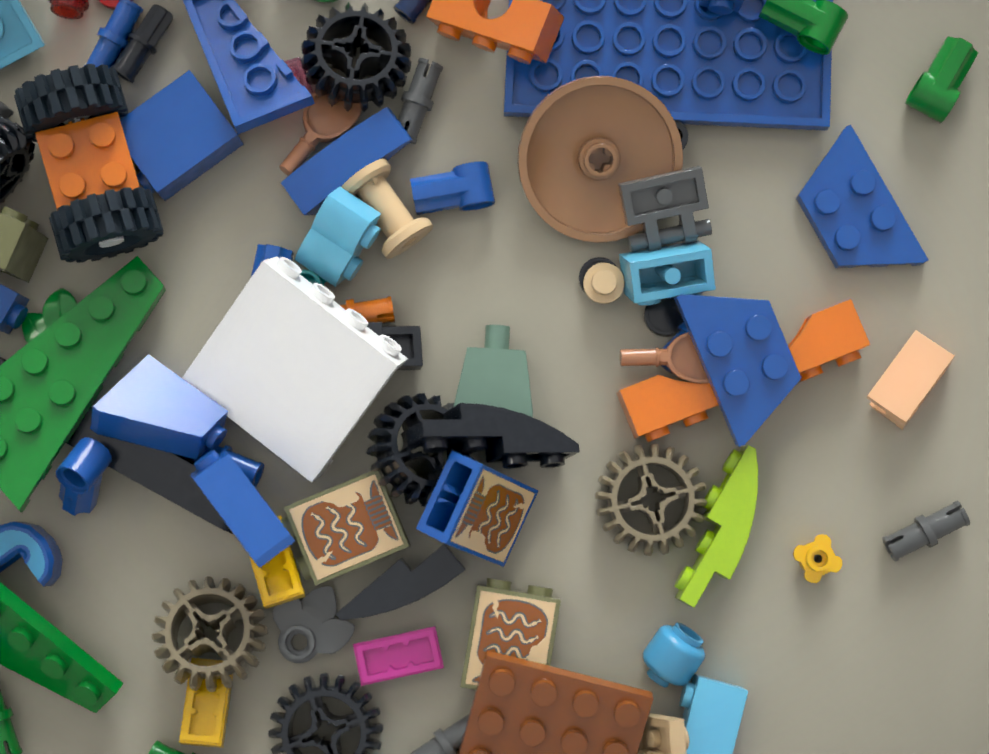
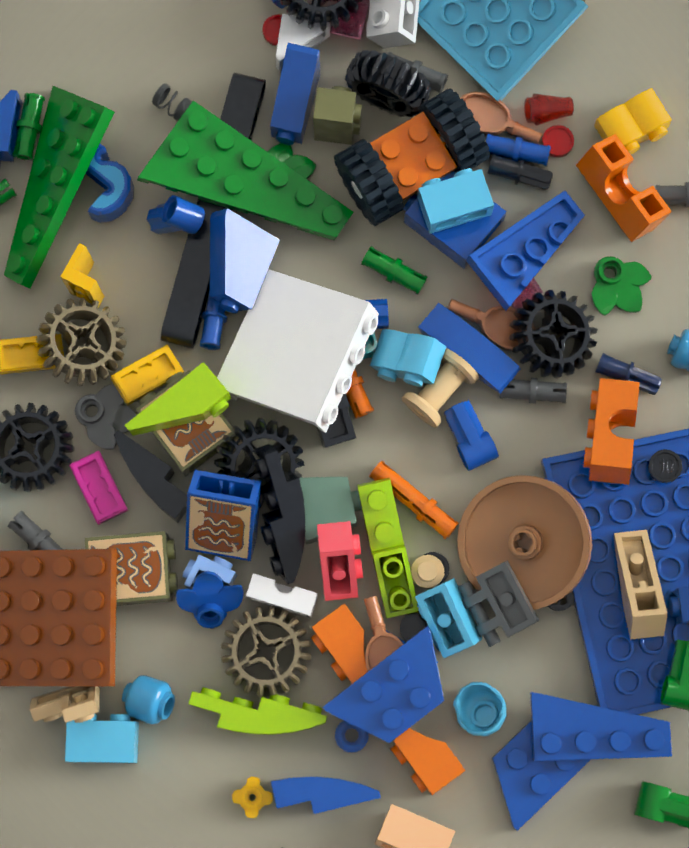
camera: 80 degrees right, 5 degrees down
(65, 49) = (495, 117): none -> nougat piece
(130, 621) = (76, 276): none -> yellow panel
(160, 123) = (455, 200): none -> medium azure brick
(224, 226) = (394, 270): none -> green pin
(241, 506) = (179, 336): slope -> none
(325, 516) = (186, 402): none -> lime slope
(516, 274) = (418, 503): none -> orange pin
(537, 533) = (203, 564): none -> light blue bracket
(563, 323) = (387, 548): none -> lime slope
(567, 382) = (338, 560): none -> coral brick
(573, 551) = (210, 599): none -> blue plate
(589, 463) = (281, 596): none -> white piece
(686, 37) = (640, 585): none -> tan slope
(782, 264) = (480, 709): none -> medium azure hair
(784, 429) = (350, 746): none -> blue plate
(832, 472) = (322, 792): none -> blue slope
(839, 148) = (586, 731): none -> blue wing

